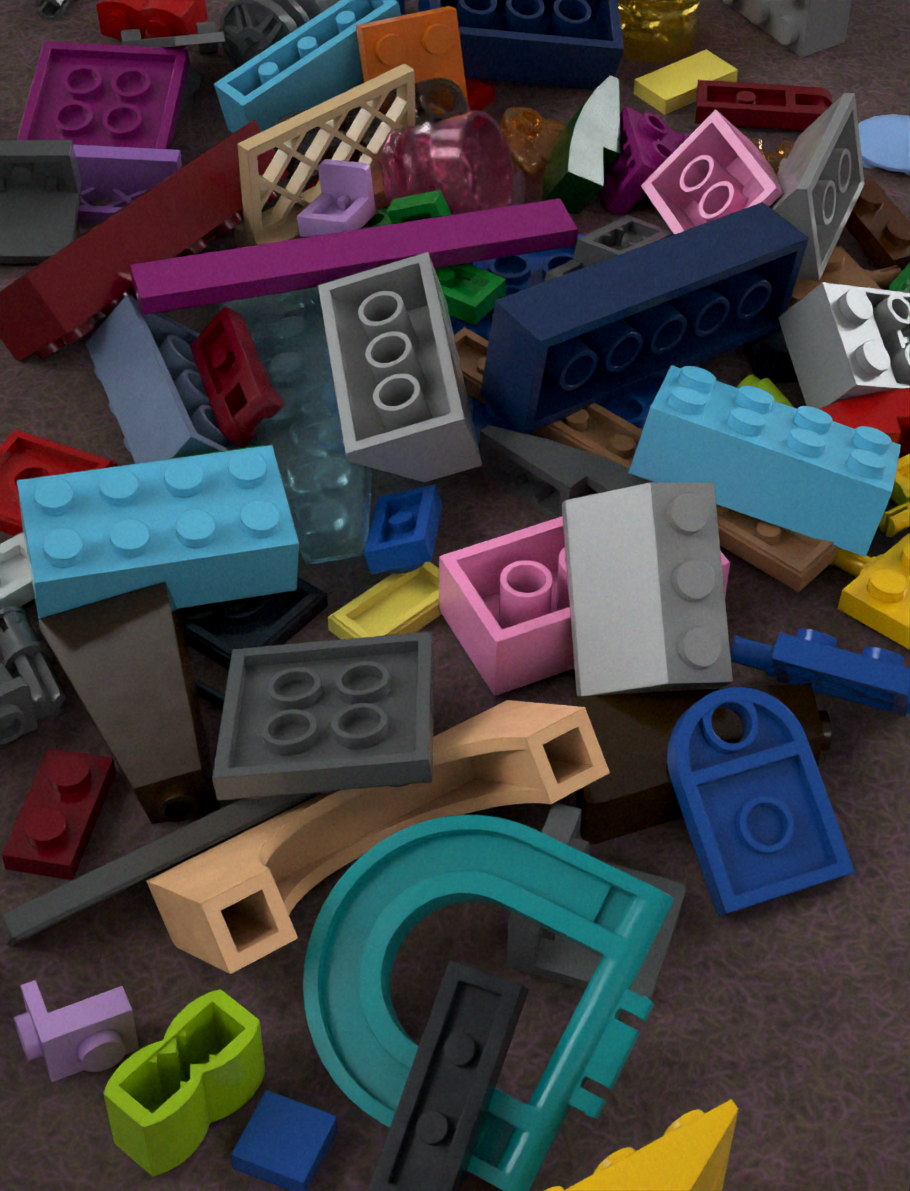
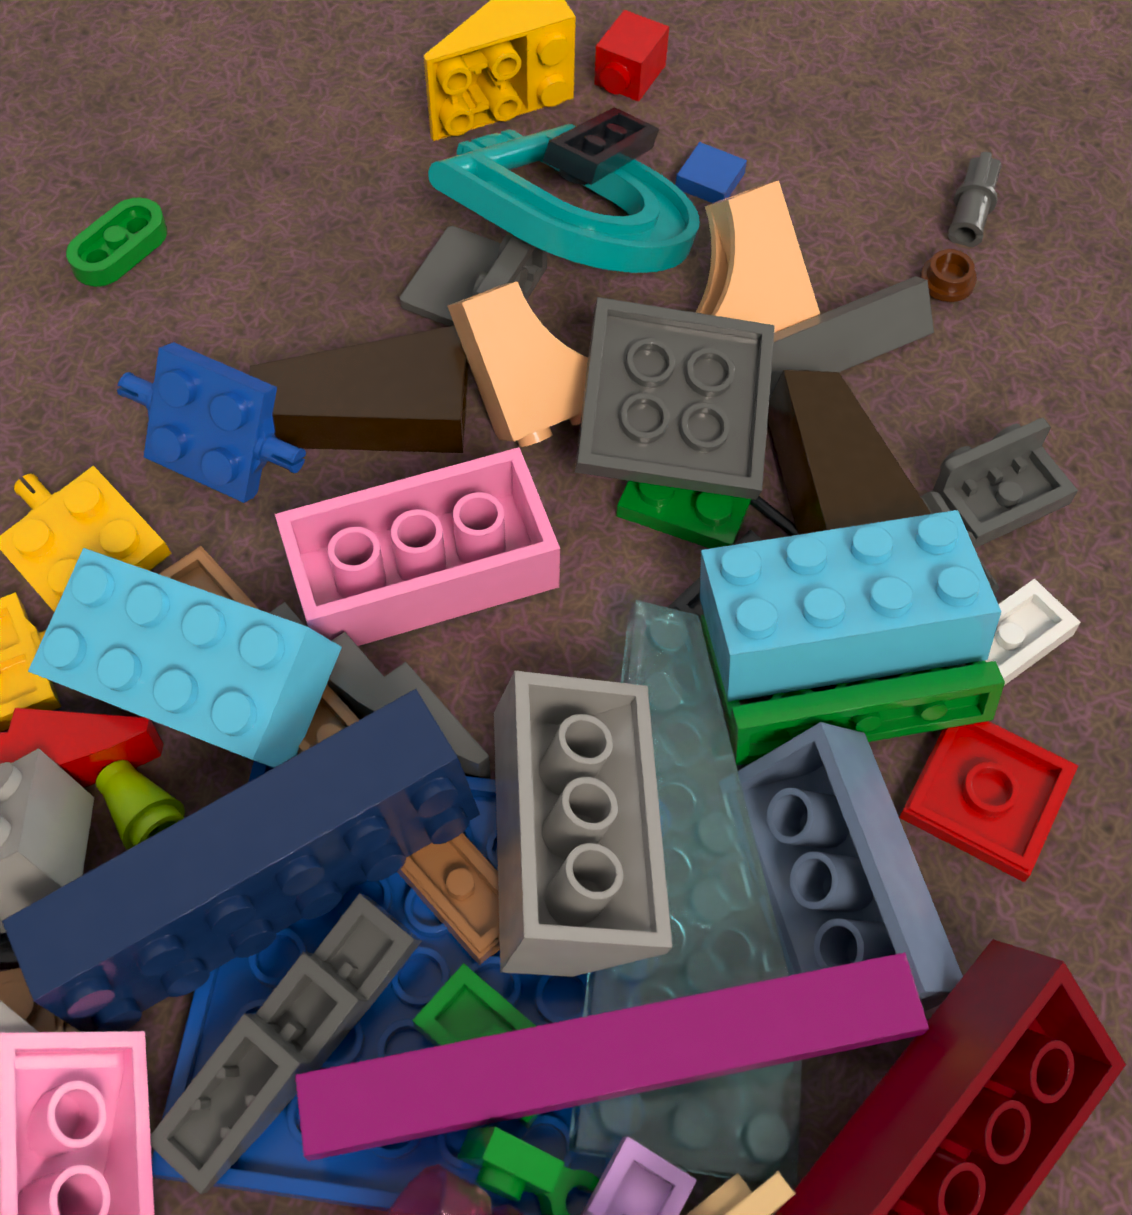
camera: 175 degrees left, 15 degrees up
(59, 814) = (902, 407): dark red plate -> none
(78, 1036) = (860, 228): lavender bracket -> none
(178, 1086) = (795, 157): lime brick -> none
(234, 377) = (776, 876): dark red plate -> none
(391, 607) = (600, 594): light yellow tile -> none
(403, 530) = (590, 634): blue plate -> none
(646, 589) = (365, 456): light grey slope -> none
(754, 804) = (329, 327): blue tile -> none

